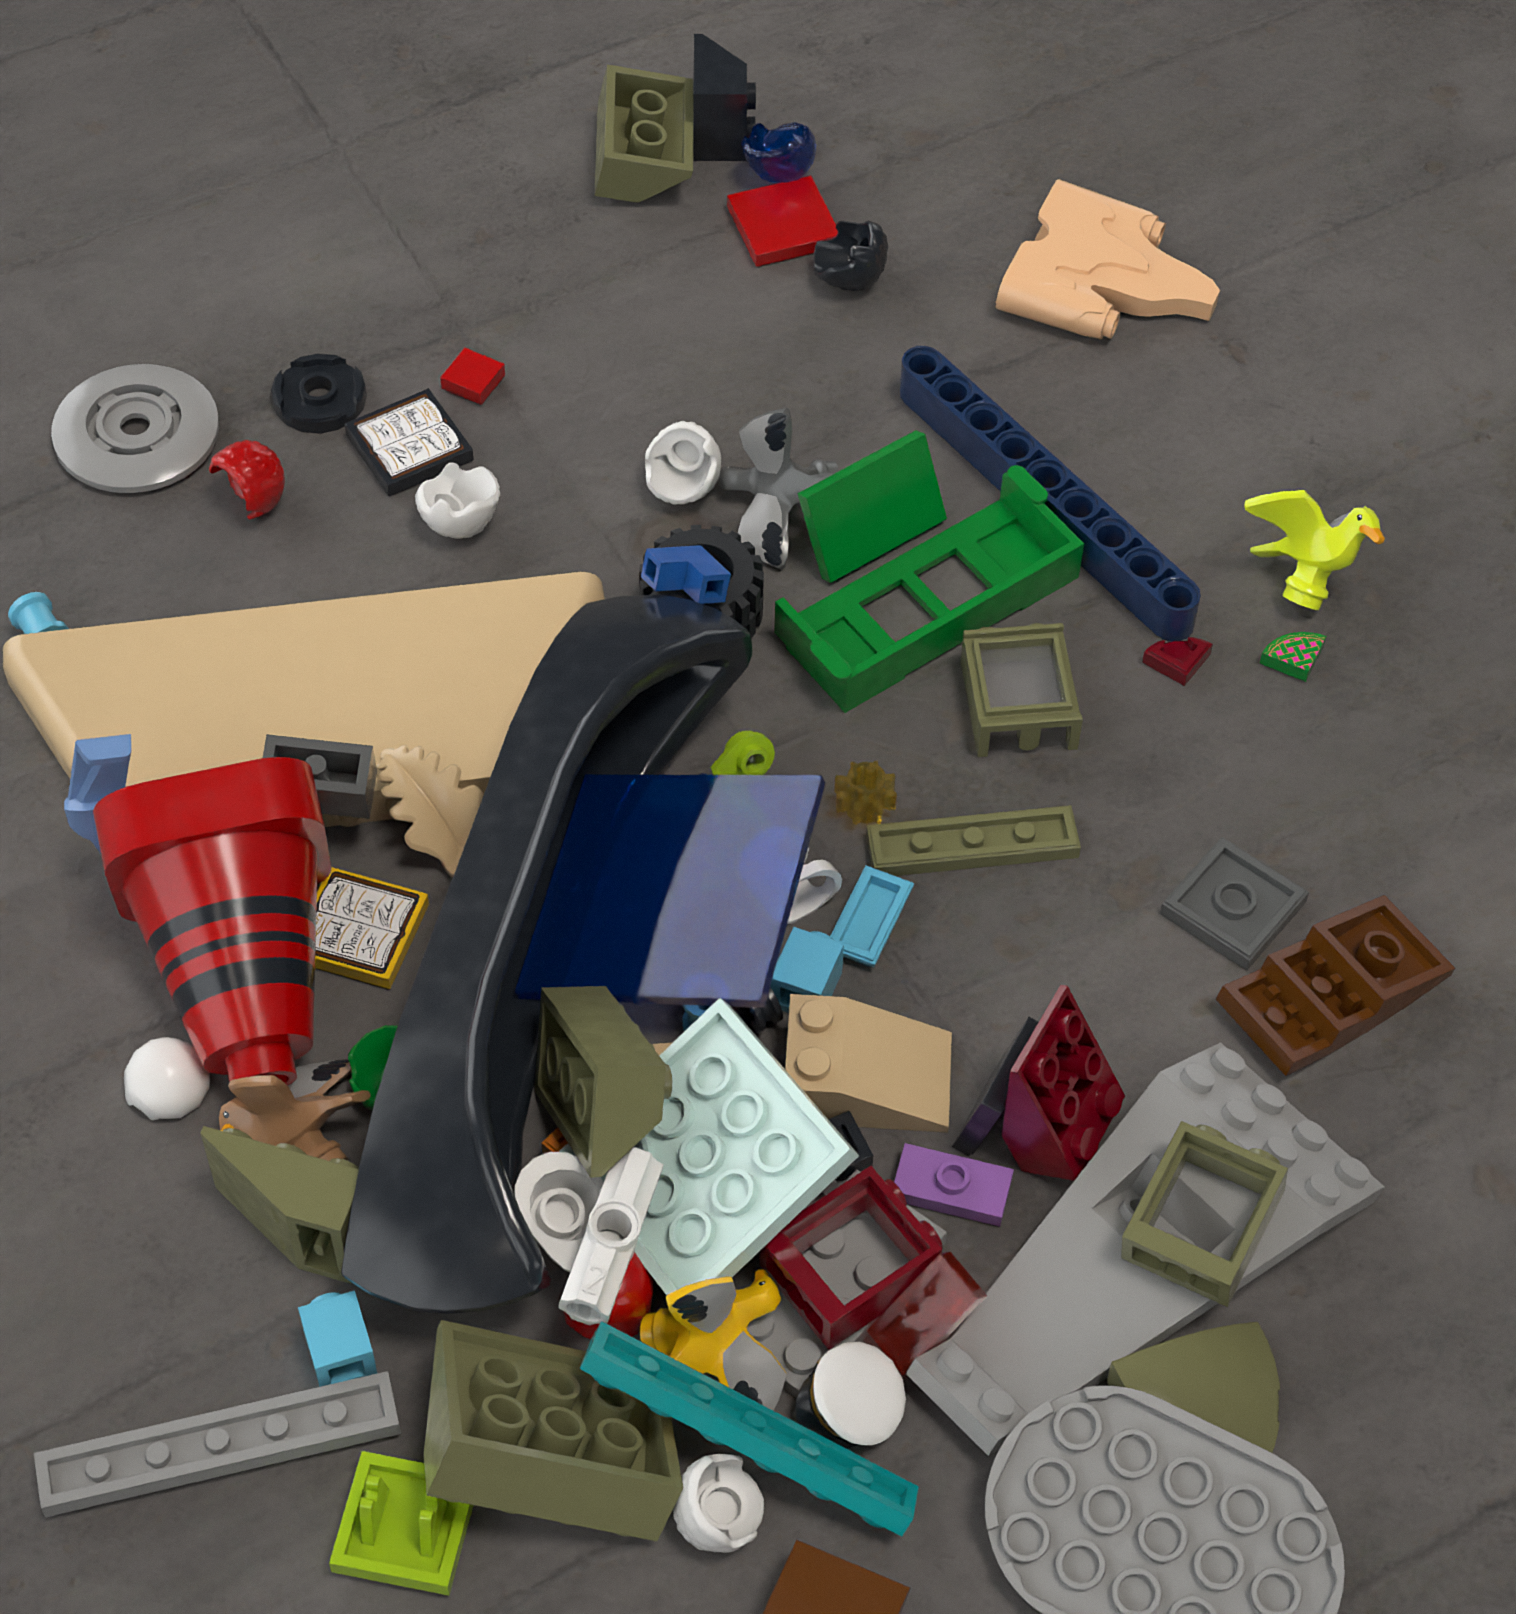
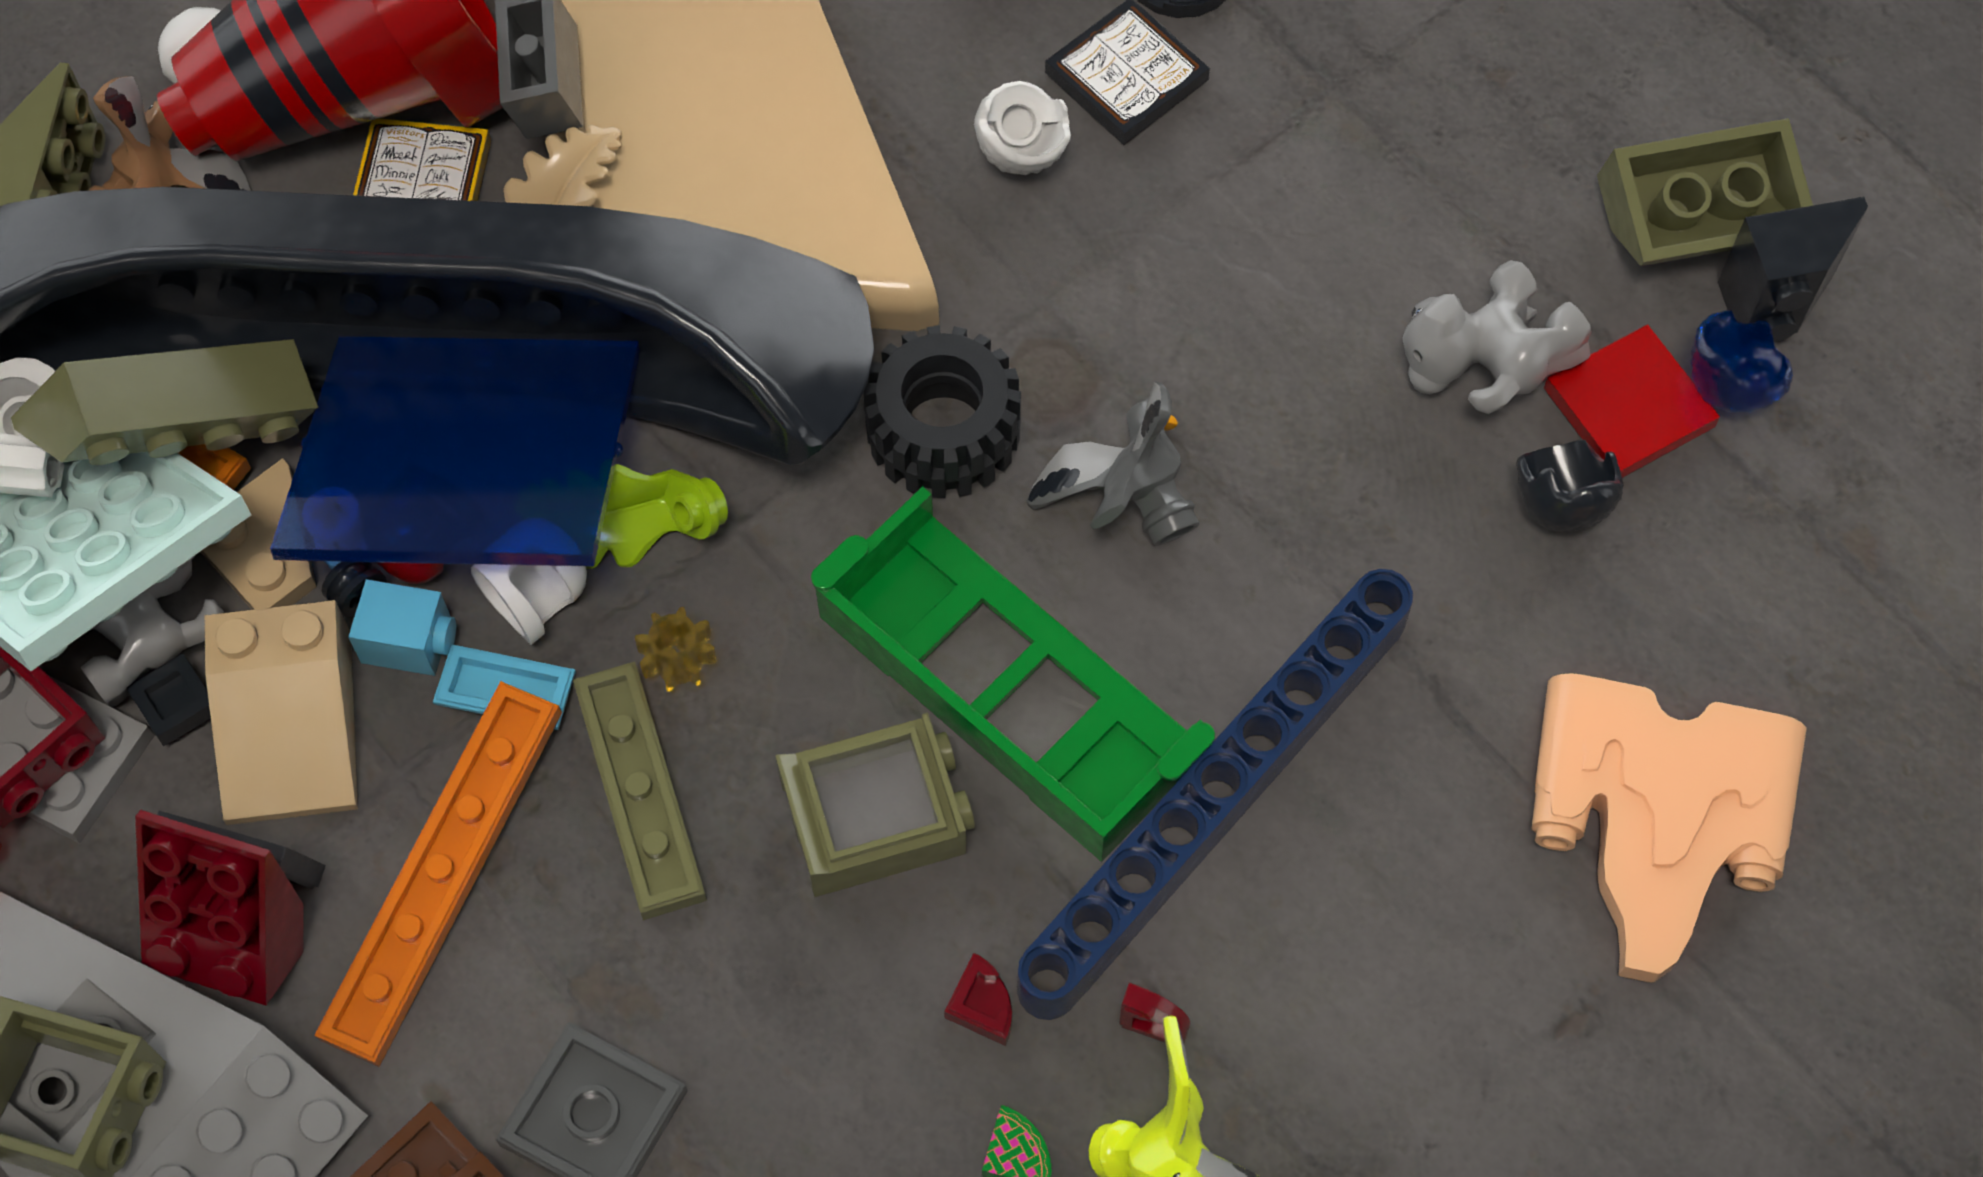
camera: 80 degrees right, 10 degrees up
(472, 376) = (1250, 112): red tile -> none
(682, 463) = (1142, 350): white hair -> none
(686, 569) = (918, 366): blue piece -> none
(723, 269) = (1448, 340): none -> light grey animal
(872, 506) = (1114, 575): green tile -> none
(953, 1184) = (137, 791): medium lavender plate -> none
(1022, 969) = (438, 874): none -> orange tile
(1206, 561) = (1144, 1013): none -> dark red tile

